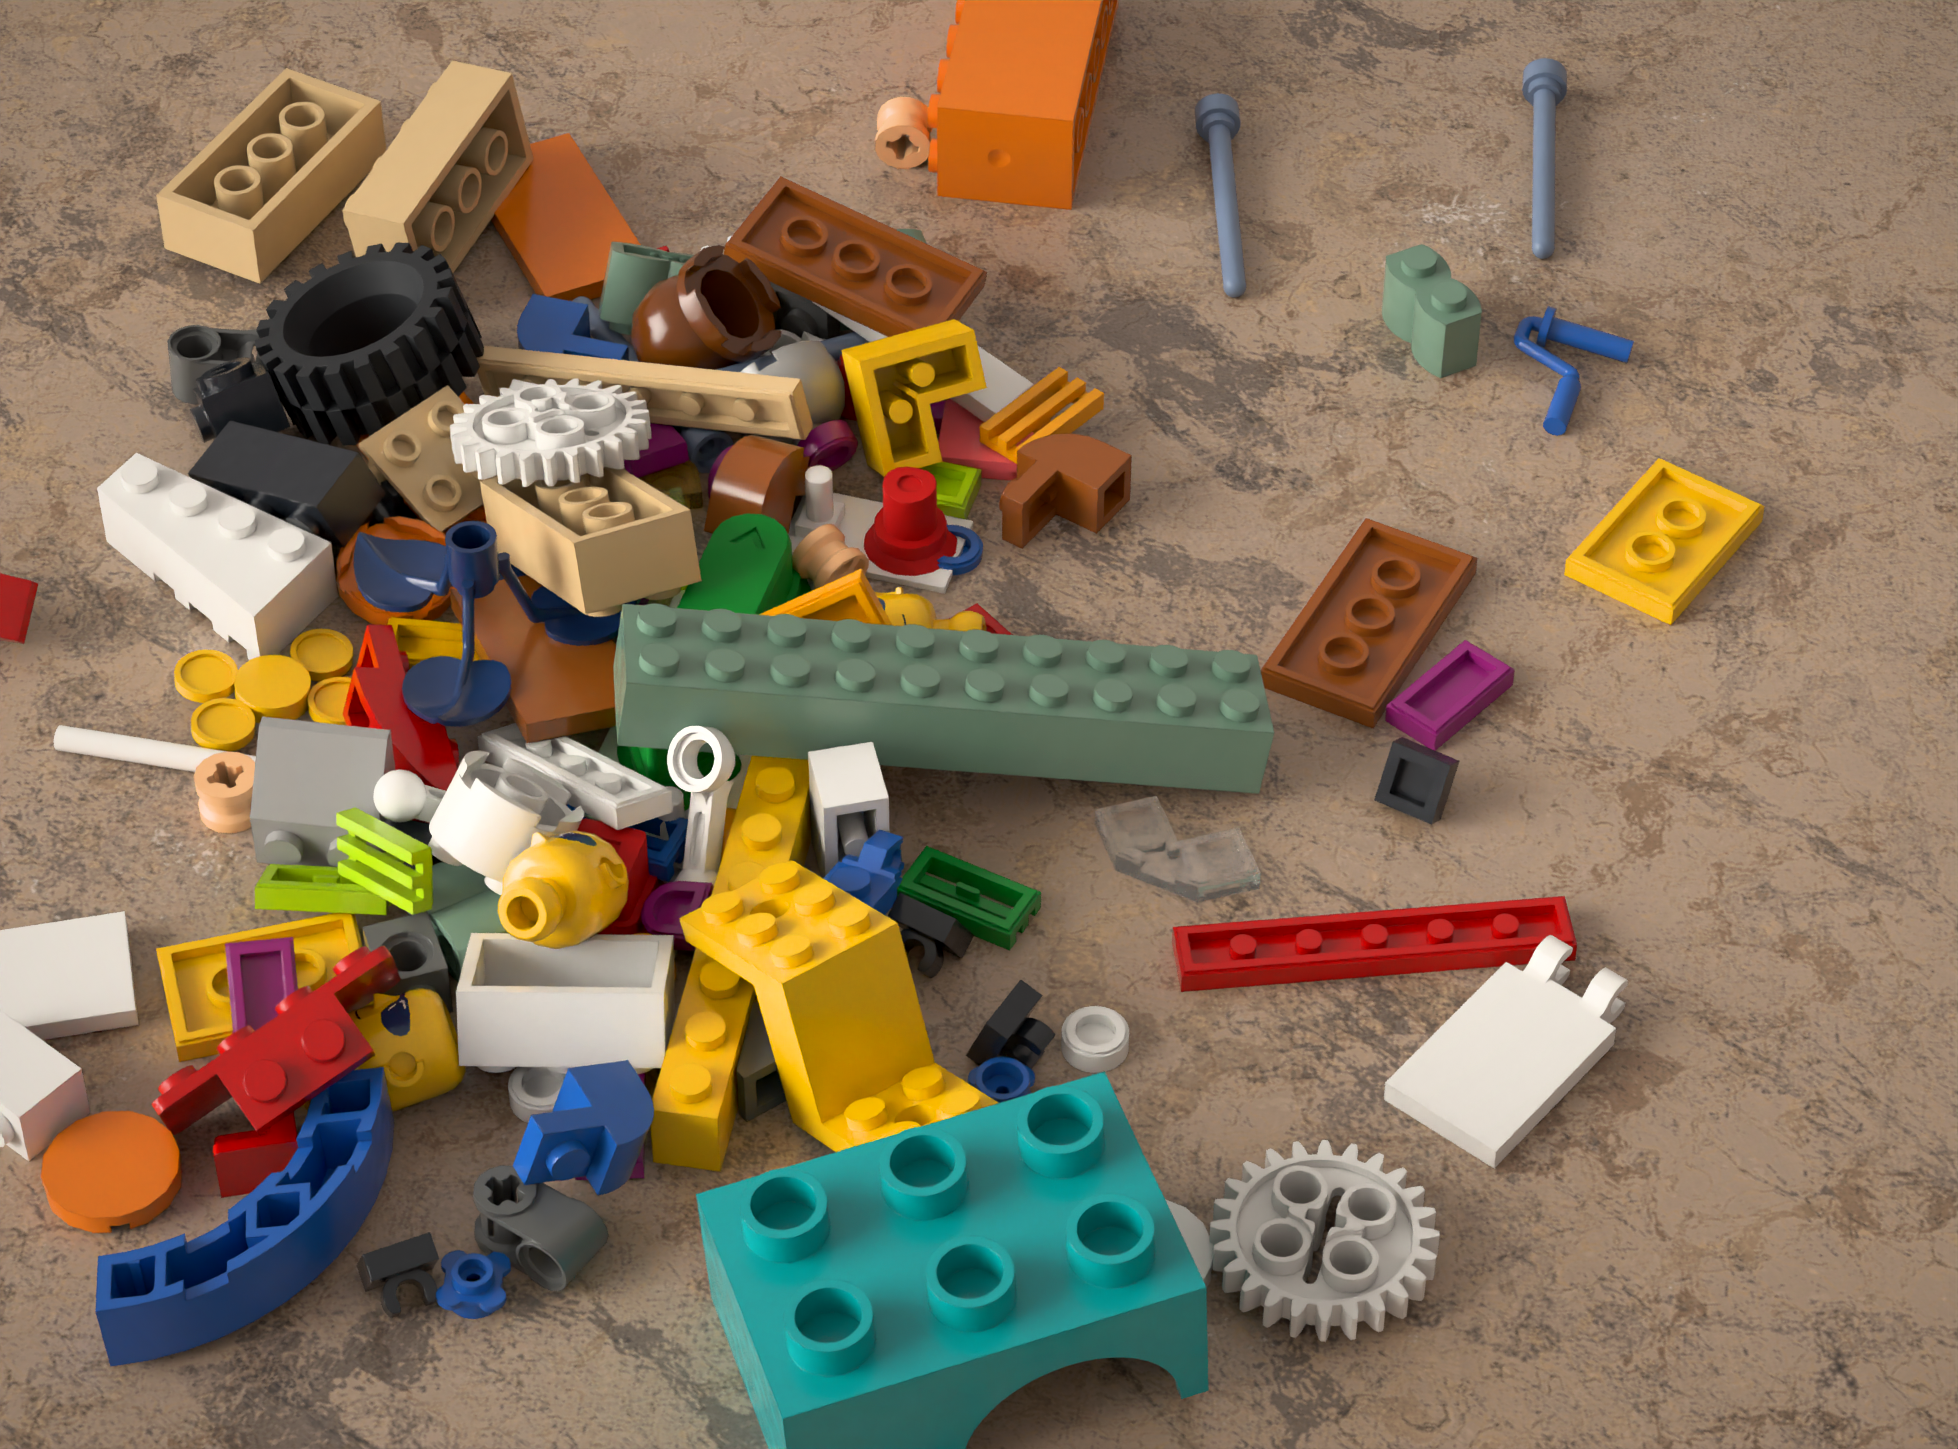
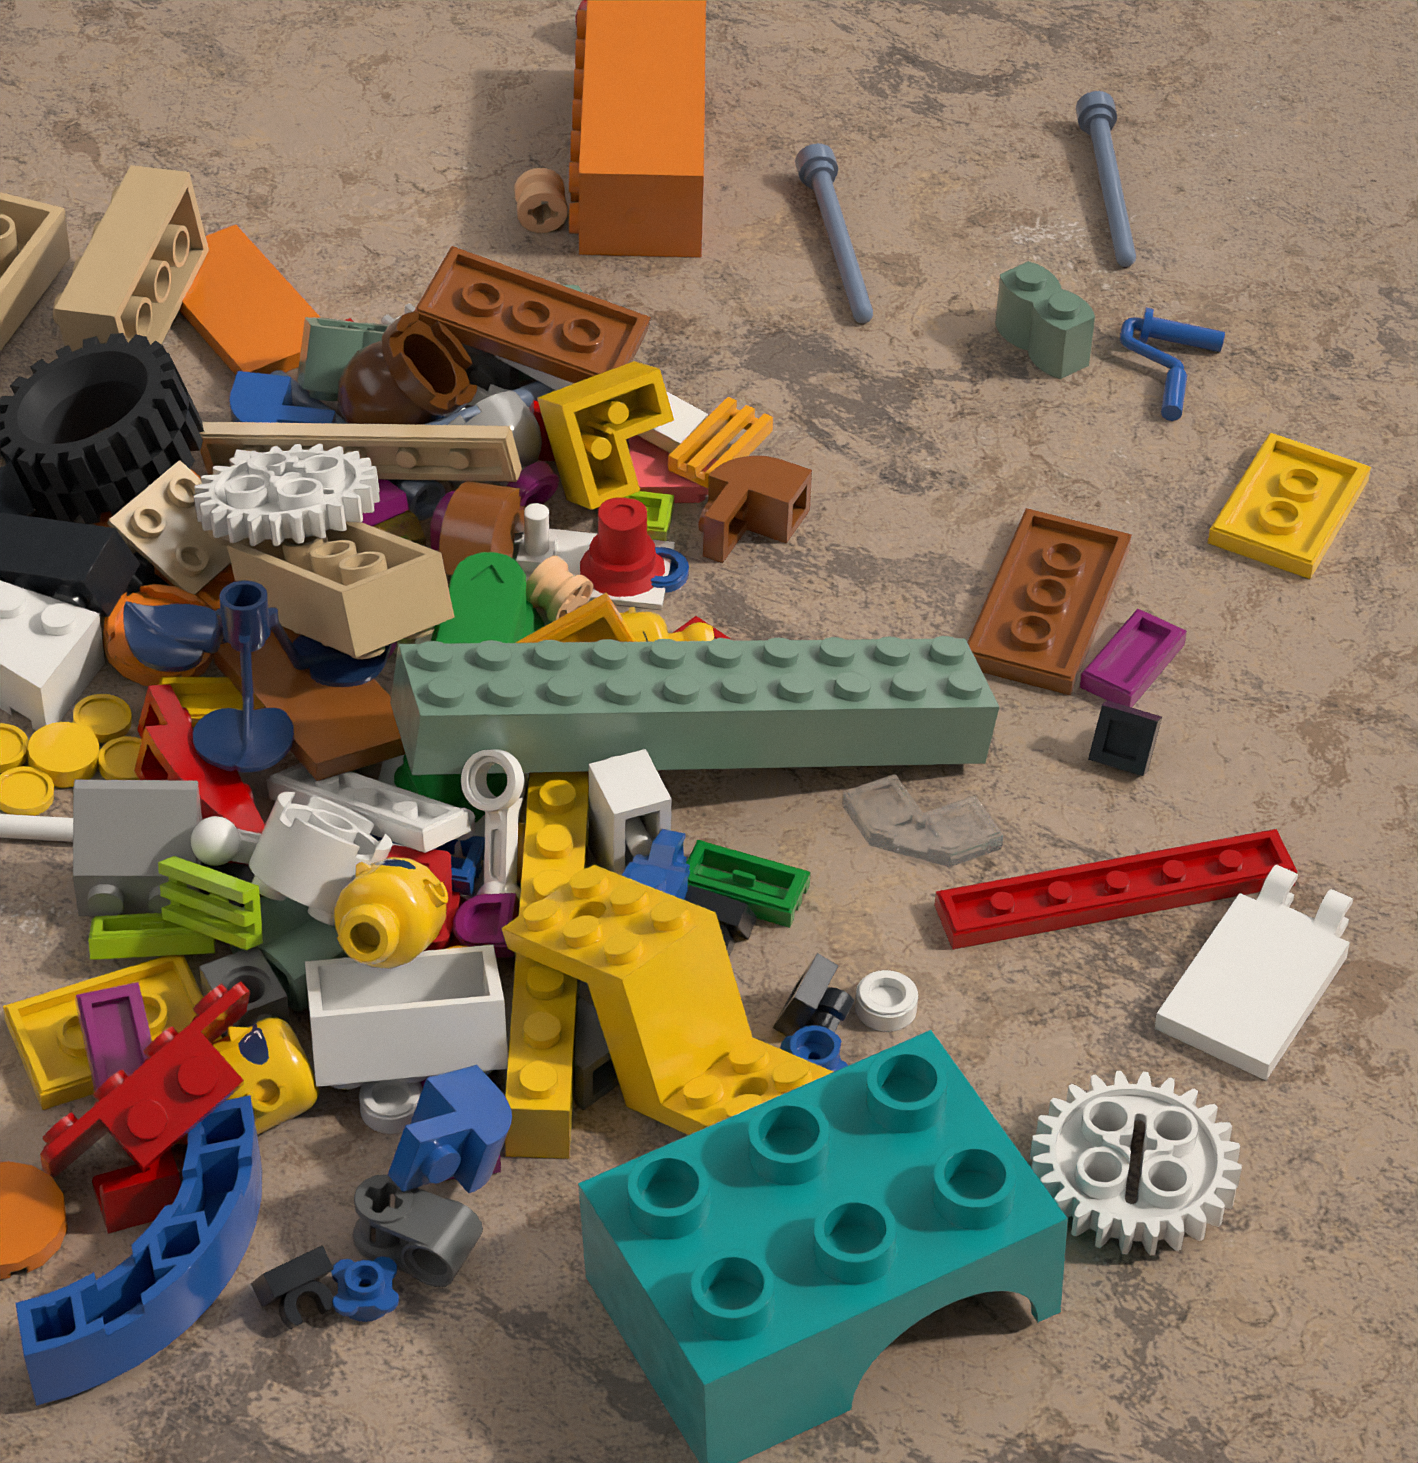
camera: 10 degrees left, 0 degrees up
(225, 791) = (42, 853): light nougat wheel -> none

